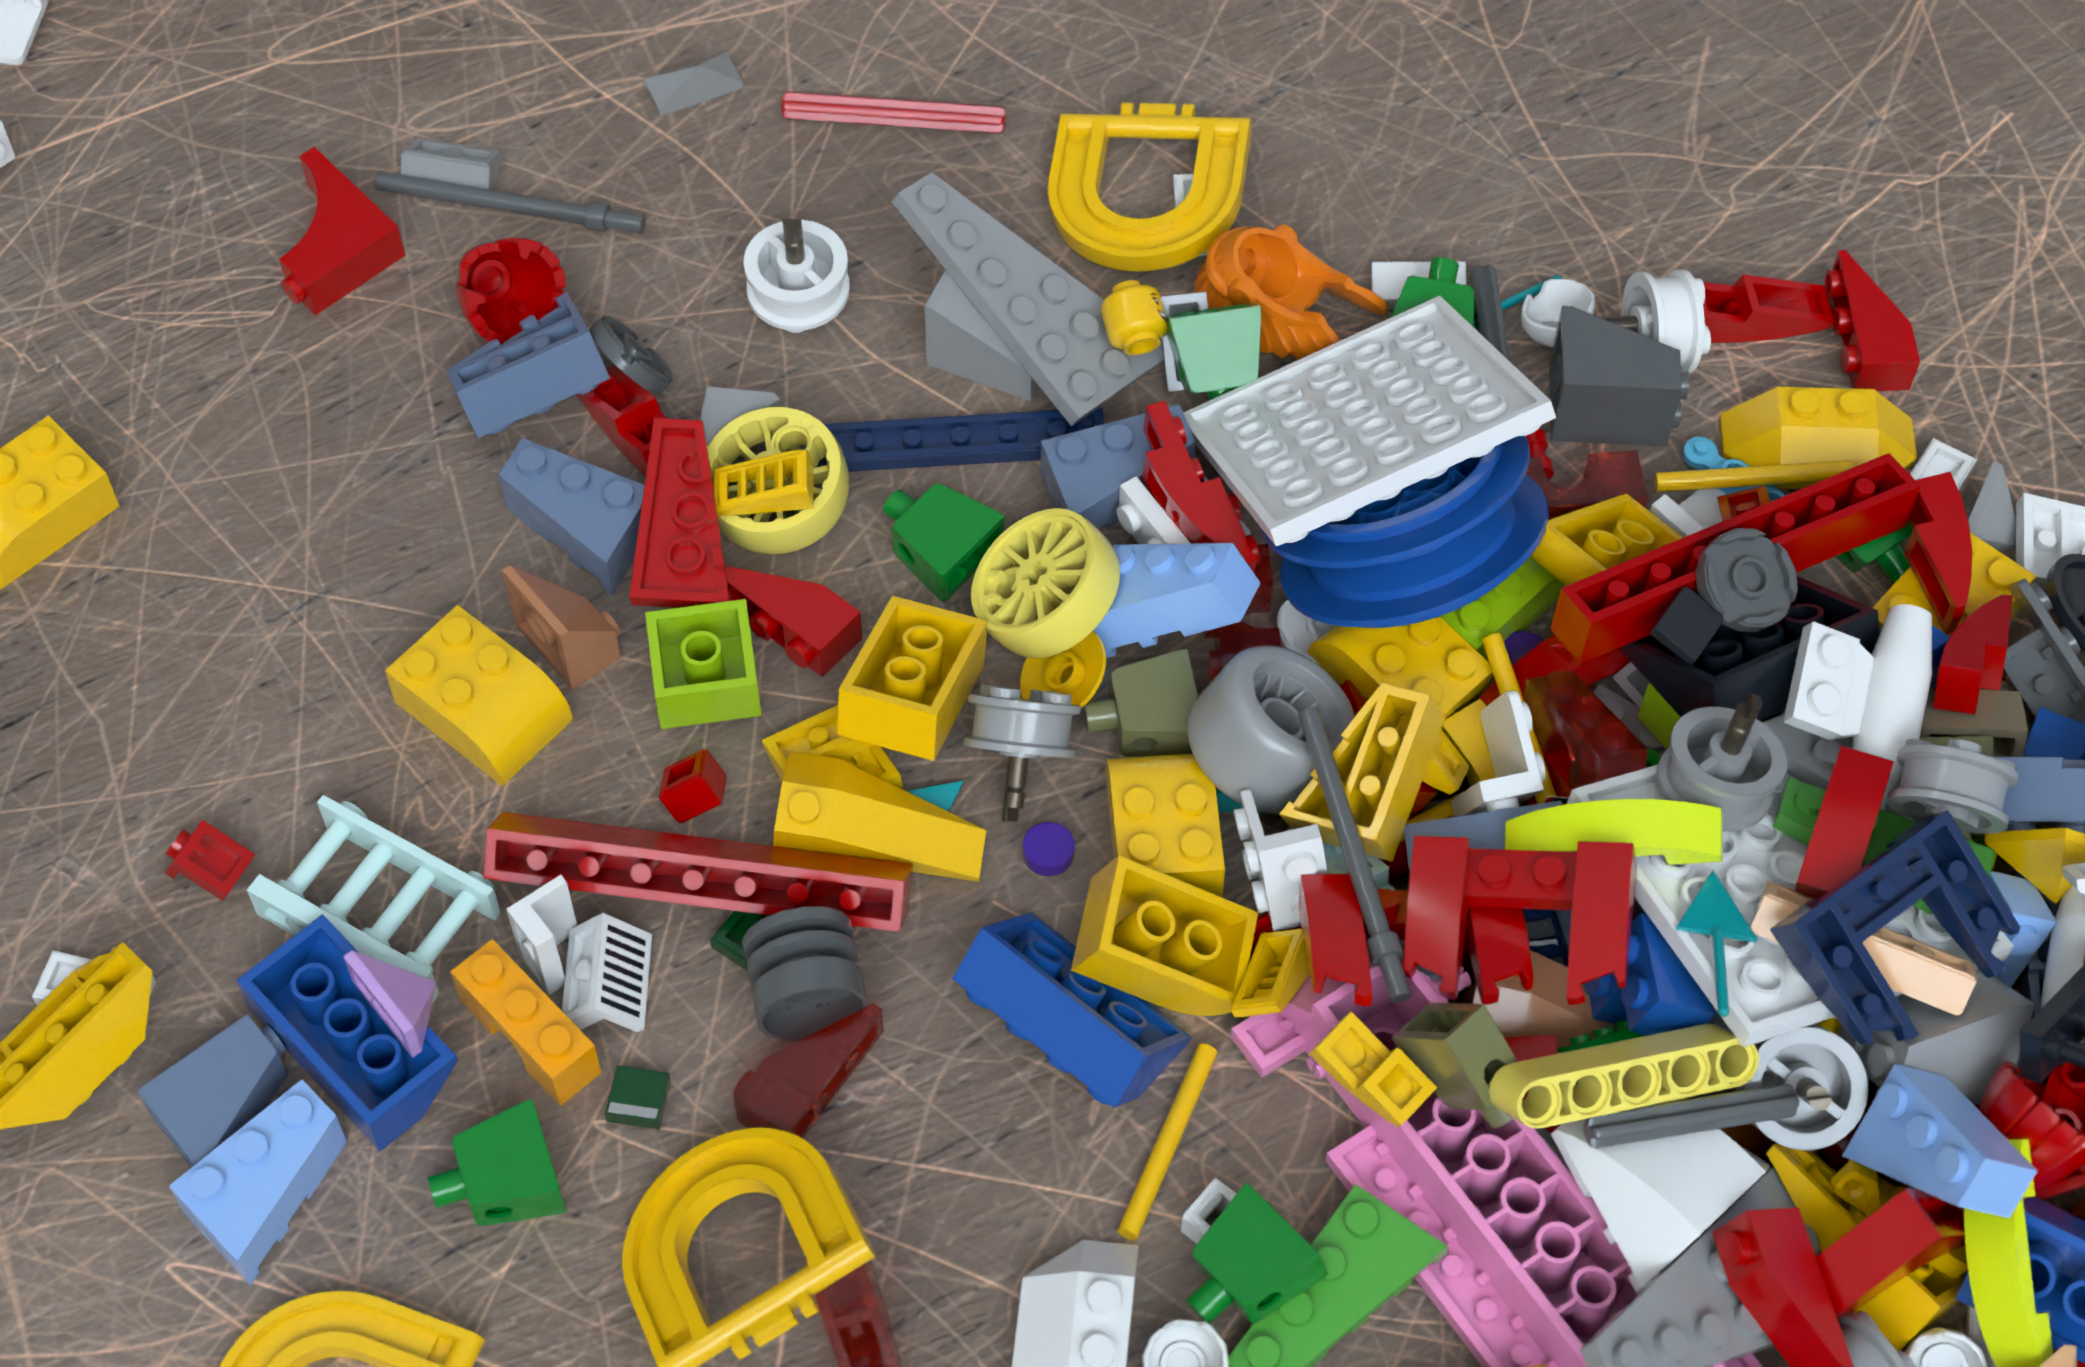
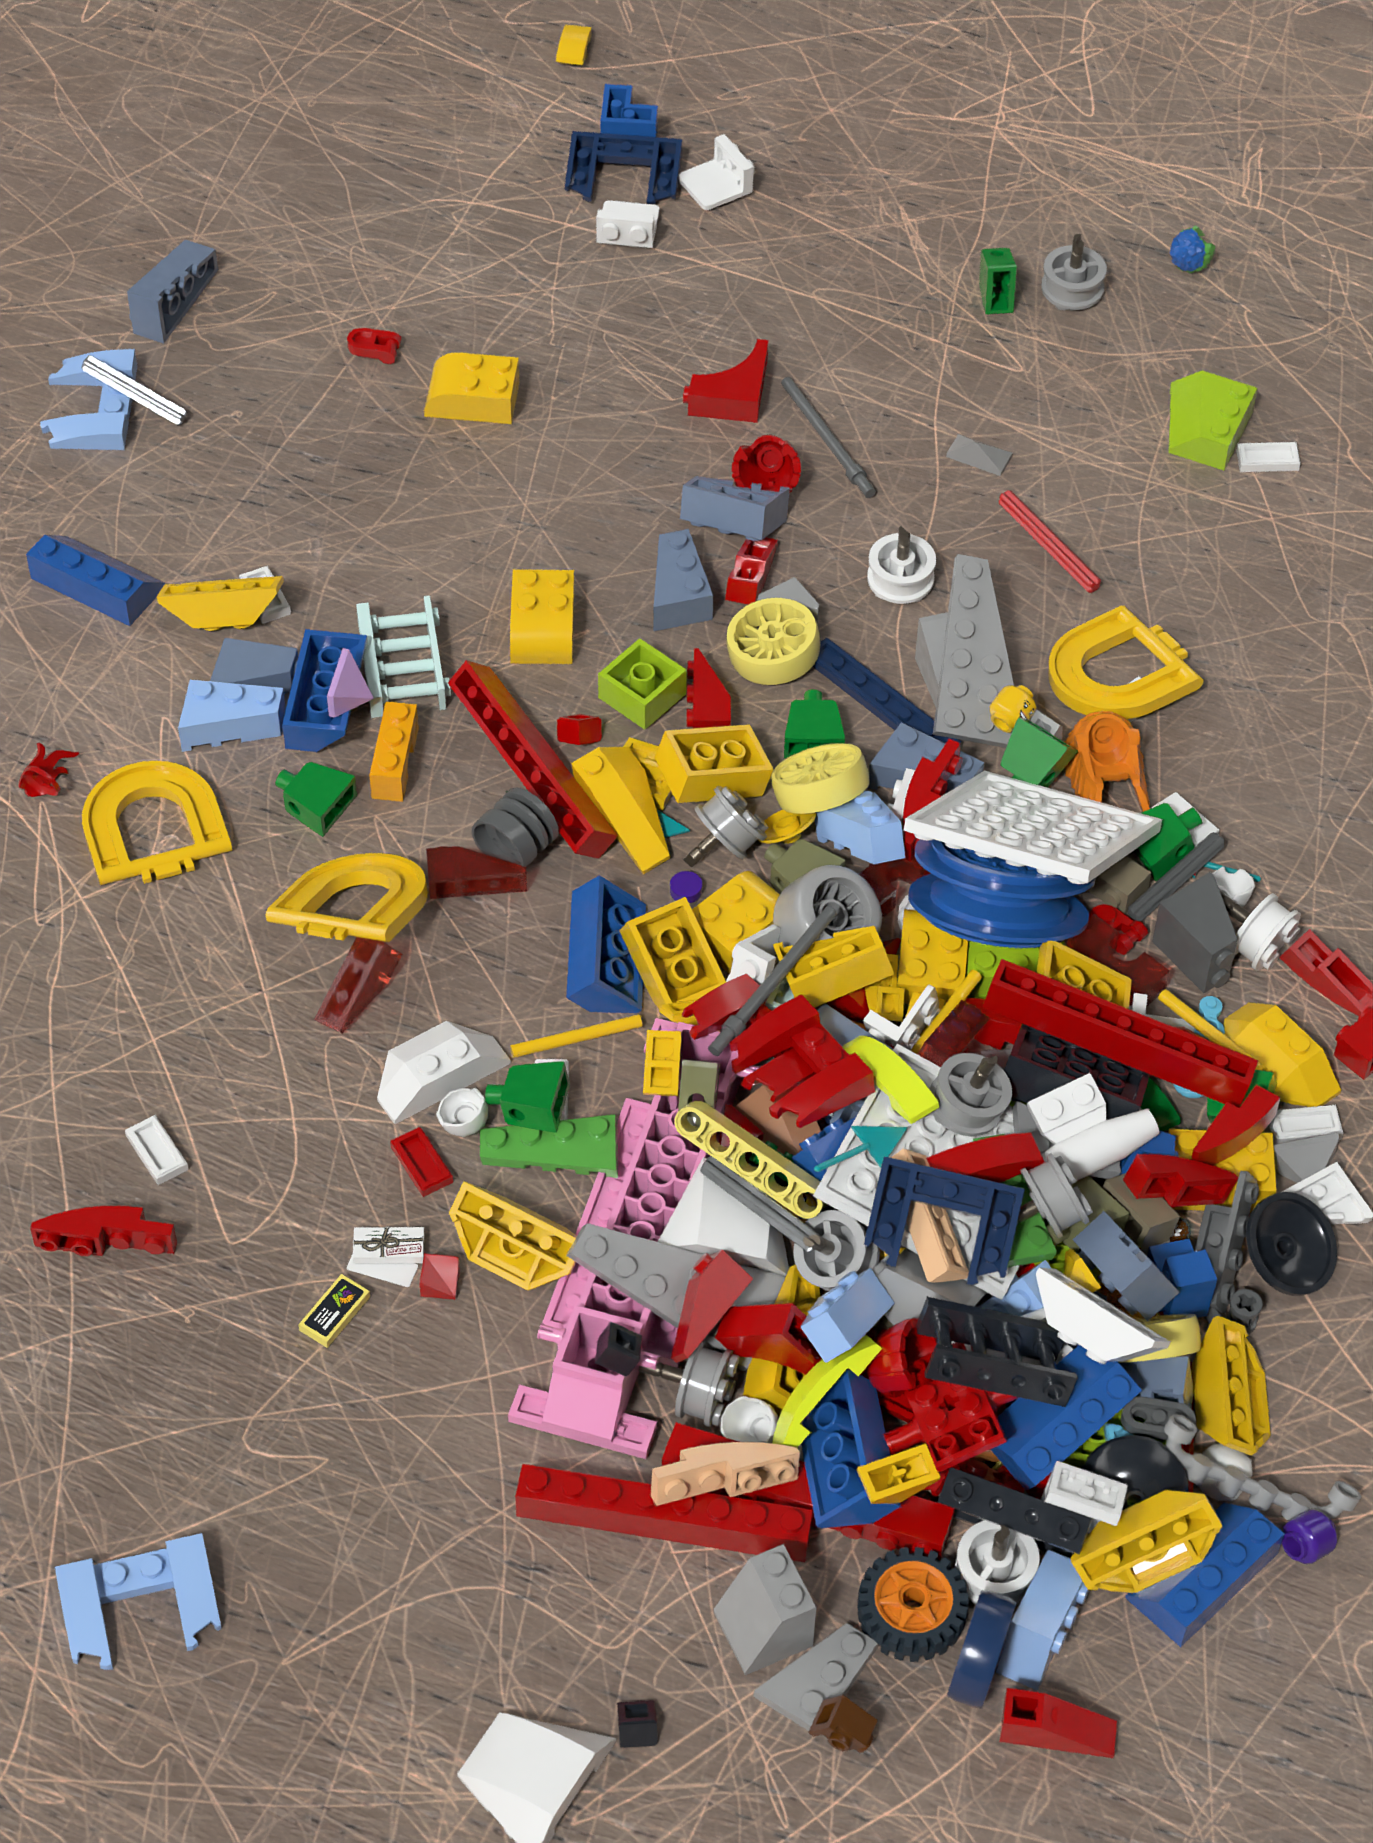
camera: 50 degrees right, 5 degrees down
(208, 859) = (362, 583): red bracket -> none
(451, 163) = (826, 400): light grey slope -> none
(539, 926) = (441, 719): white panel -> none
(562, 626) = (607, 619): nougat slope -> none
(607, 973) = (450, 767): white panel -> none
(624, 350) = (781, 536): dark grey tile -> none
(638, 1097) = (401, 821): dark green tile -> none
(679, 531) = (700, 619): red wing -> none
(781, 498) = (764, 648): yellow slope -> none
(1686, 625) = (1039, 1028): black slope -> none
(1746, 579) = (1094, 1036): dark grey tile -> none

